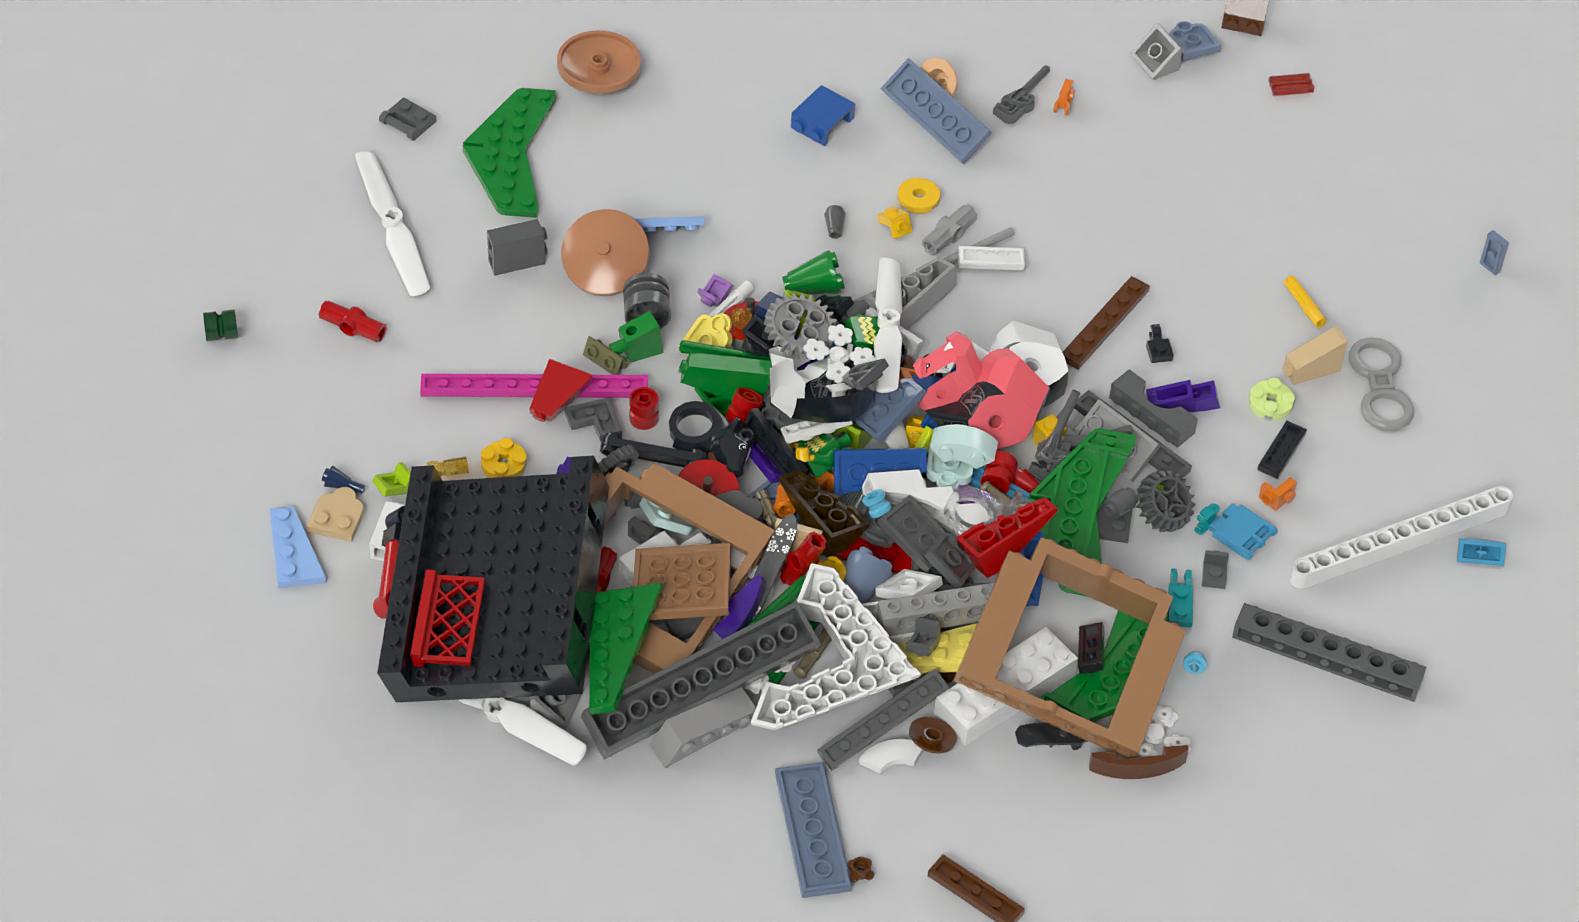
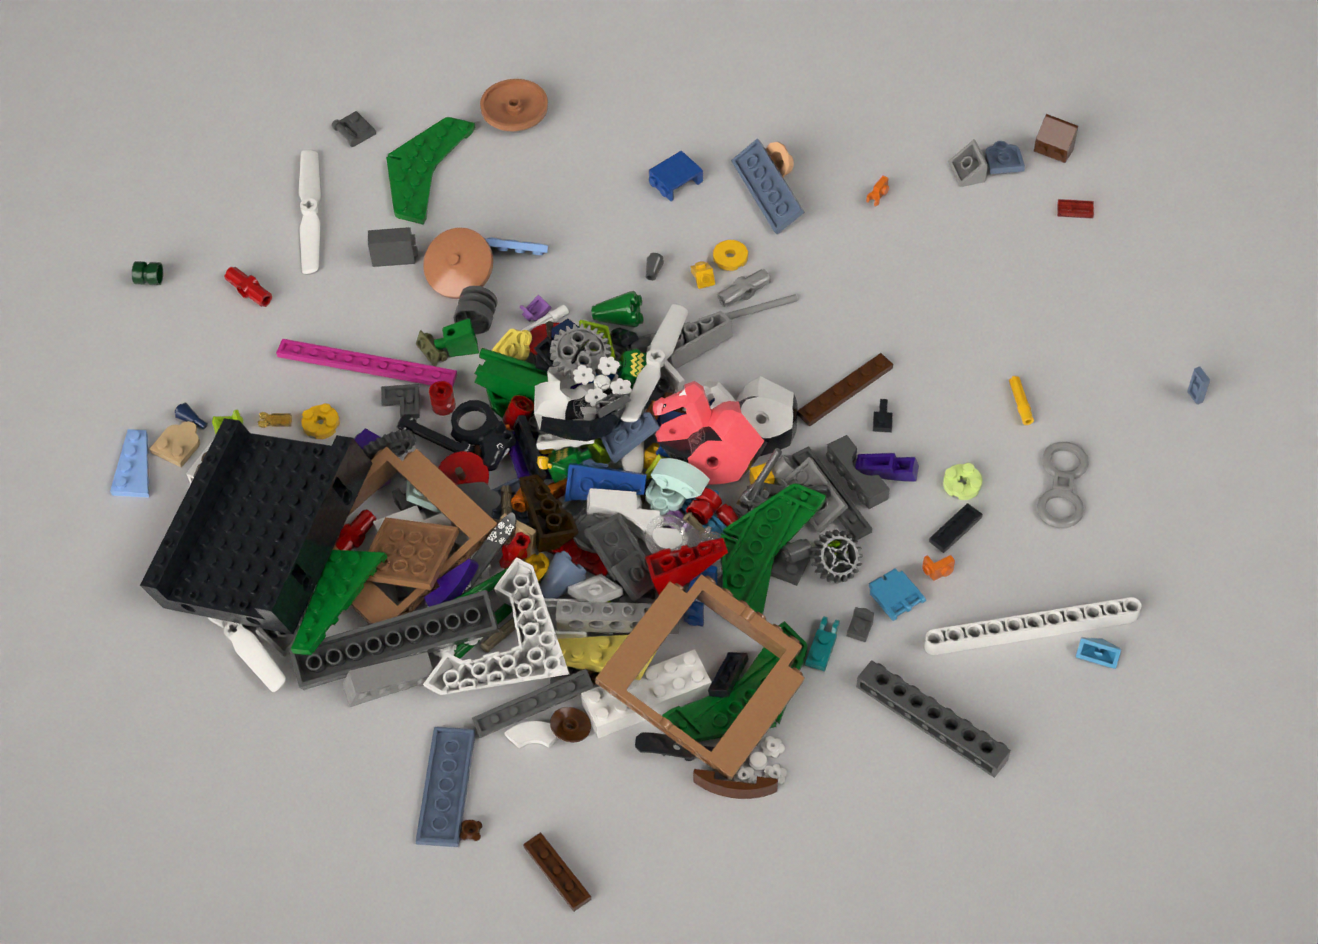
camera: 20 degrees right, 5 degrees up
(428, 612) = (192, 548): red fence -> none
(557, 389) = (377, 371): red slope -> none
(745, 317) = (536, 332): clear yellow plate -> none
(876, 503) = (588, 515): medium azure wheel -> none
(925, 637) = (586, 641): dark grey bracket -> none
(991, 258) = (769, 318): white plate -> none
(1018, 102) = (841, 188): dark grey piece -> none
(1195, 662) = (814, 704): medium azure plate -> none
(1209, 515) = (870, 575): teal piece -> none
(1317, 357) = (1010, 452): tan slope -> none

